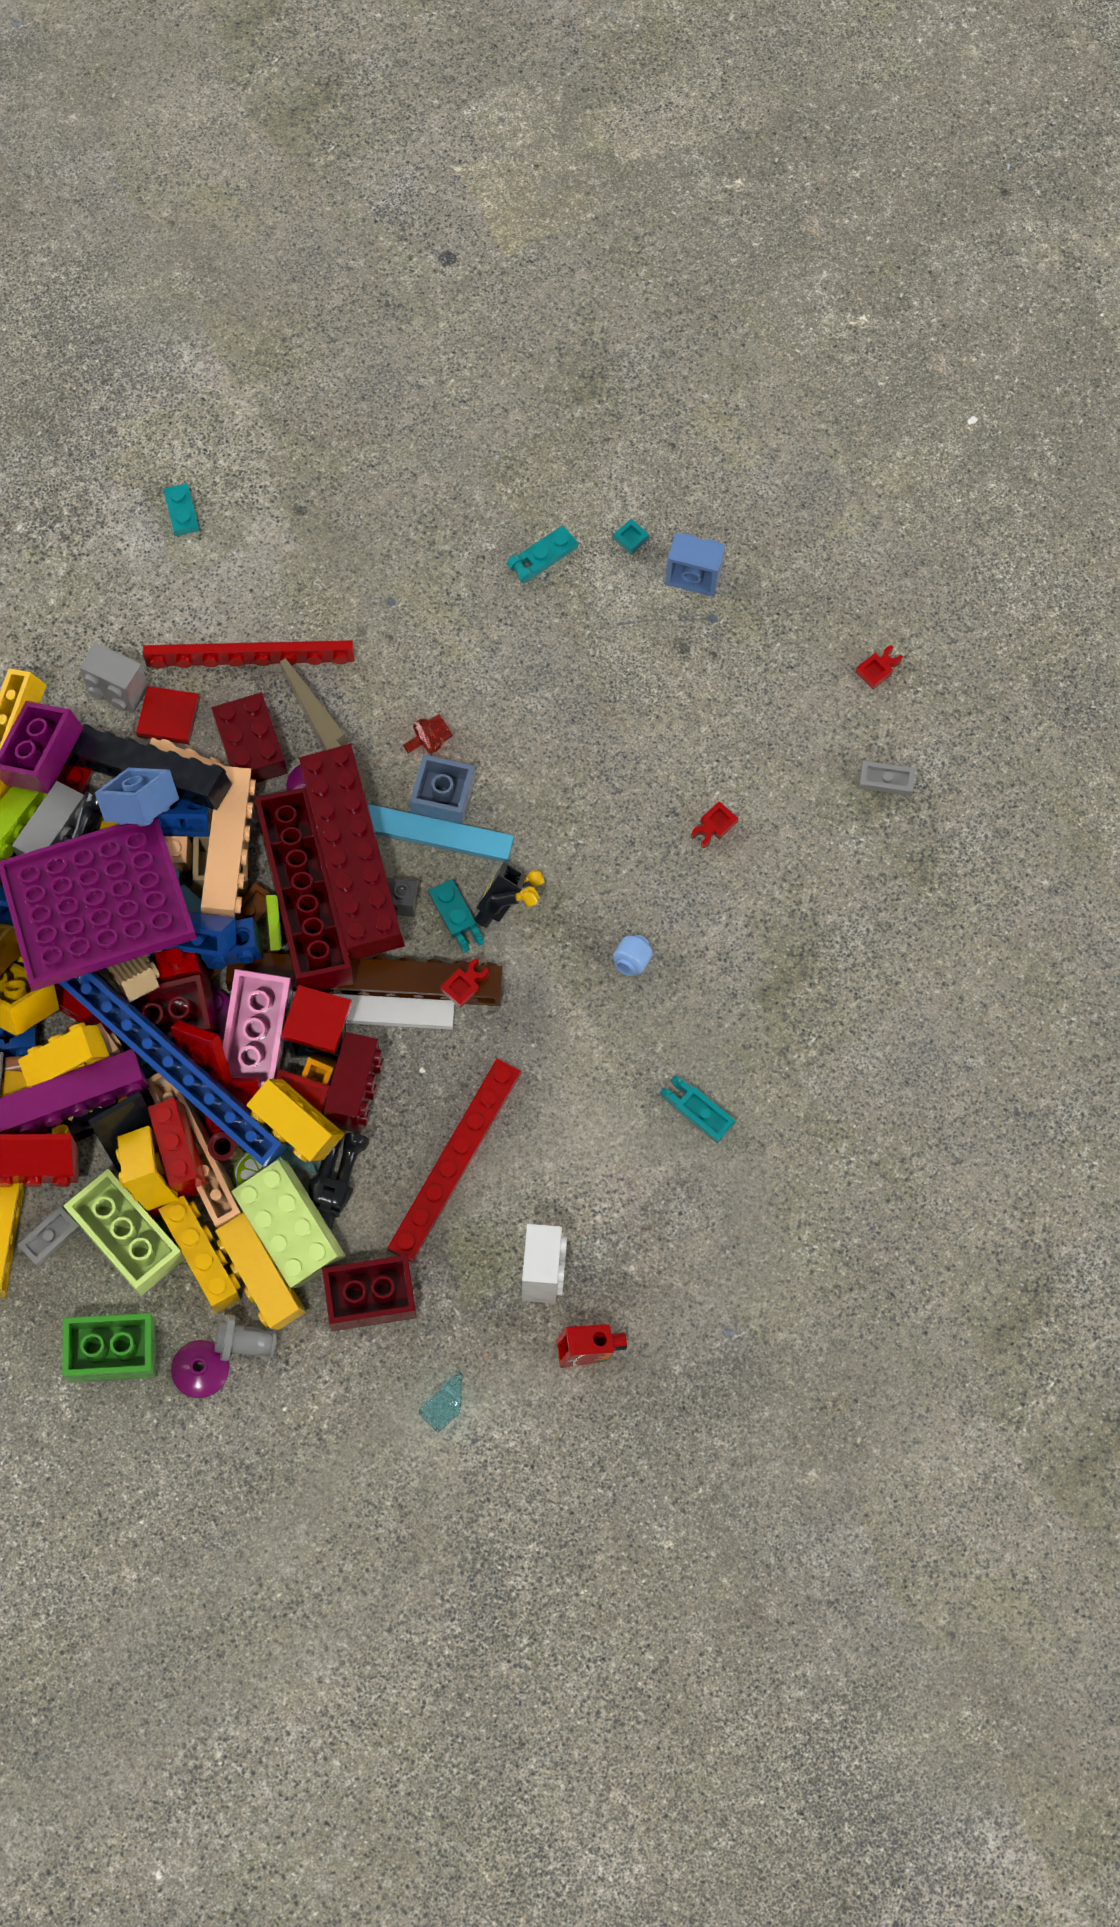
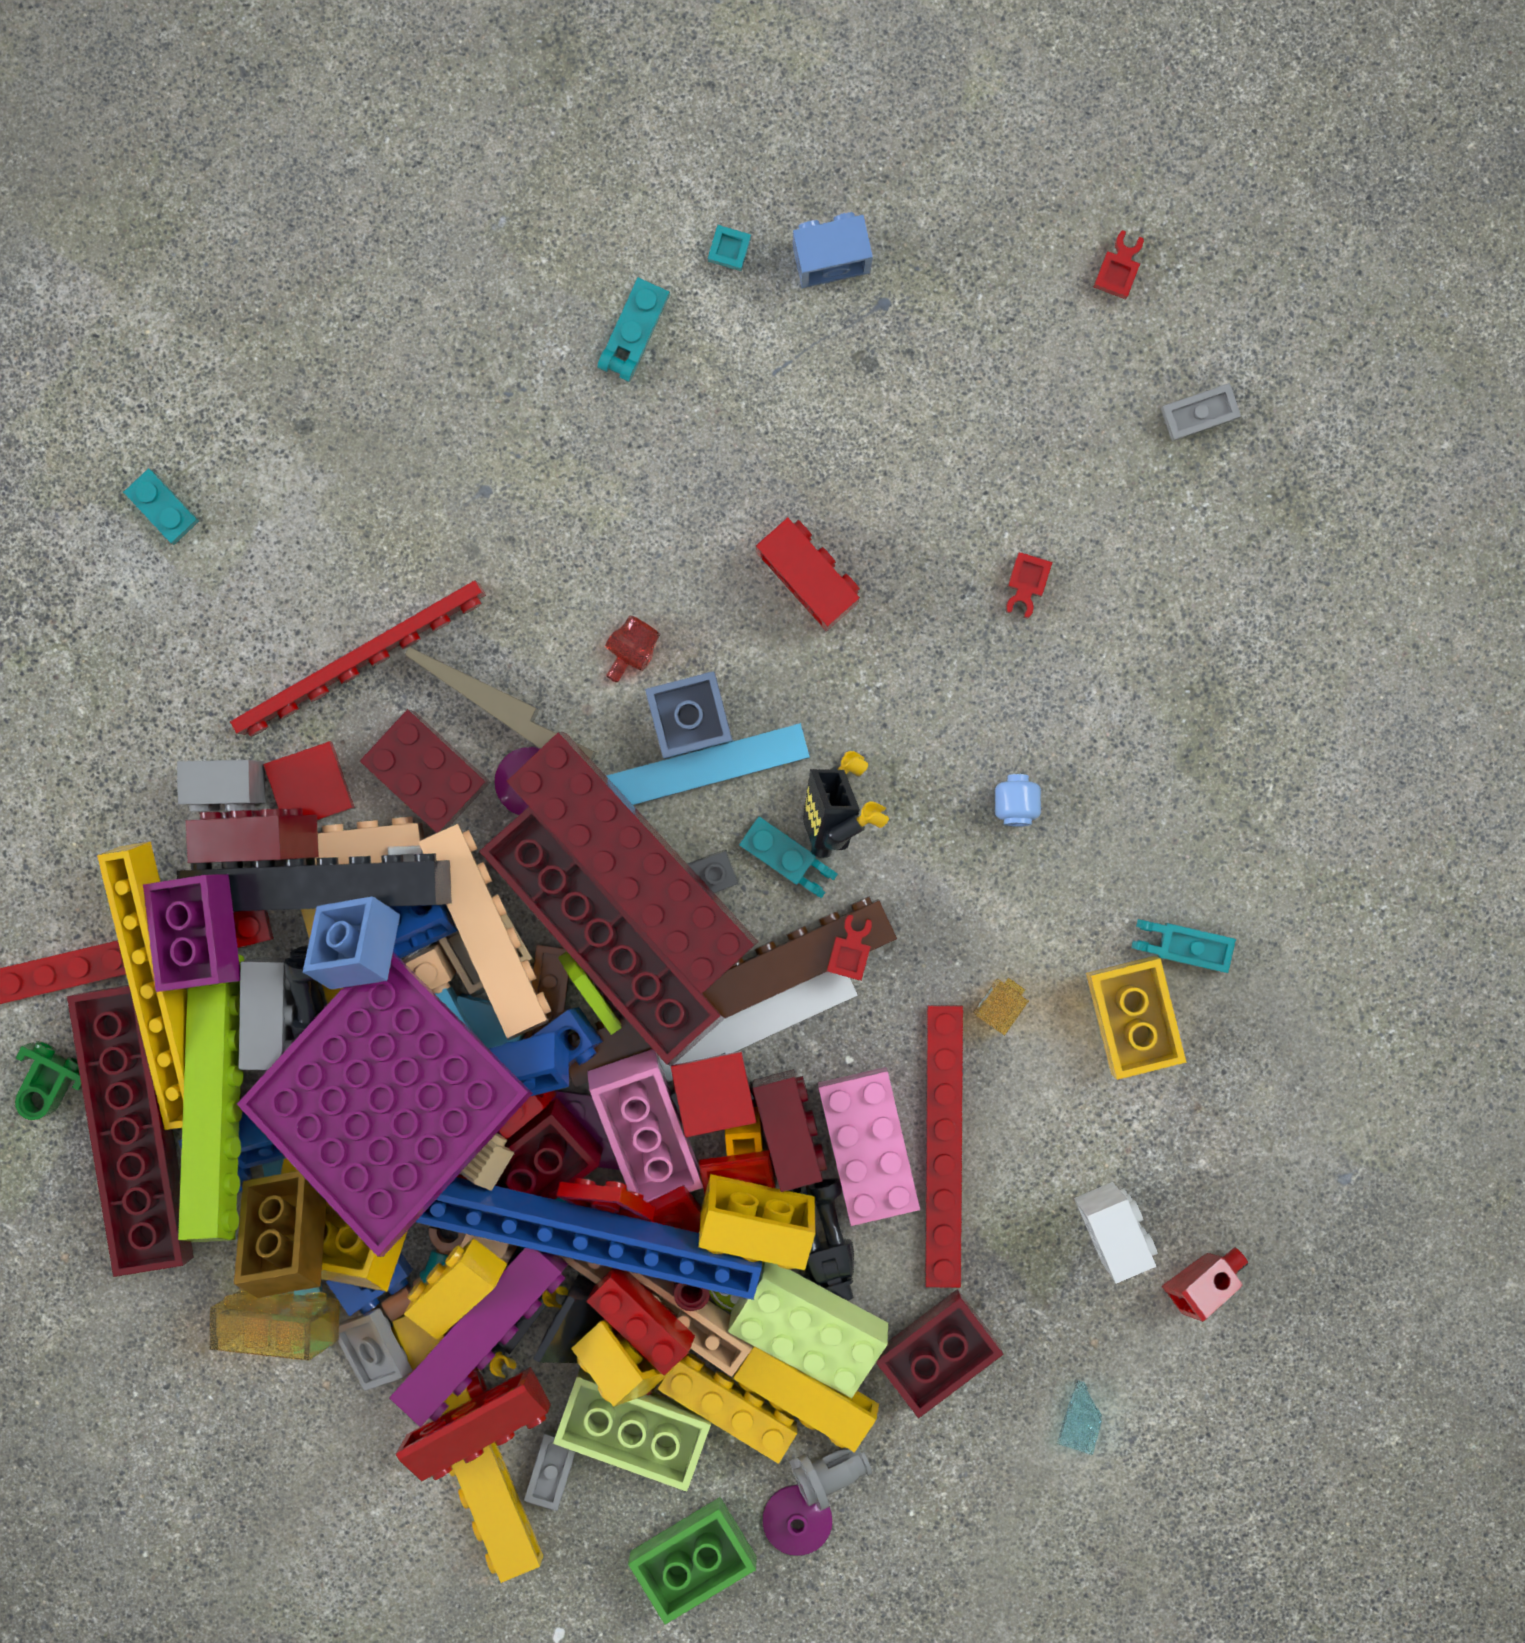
camera: 20 degrees left, 20 degrees up
(113, 711) = (251, 836): none -> dark red brick
(402, 1127) = (868, 1146): none -> bright pink brick
(547, 1082) = (1001, 1005): none -> clear yellow brick
(571, 742) = (808, 573): none -> red brick
(636, 1134) = (1136, 1017): none -> yellow brick

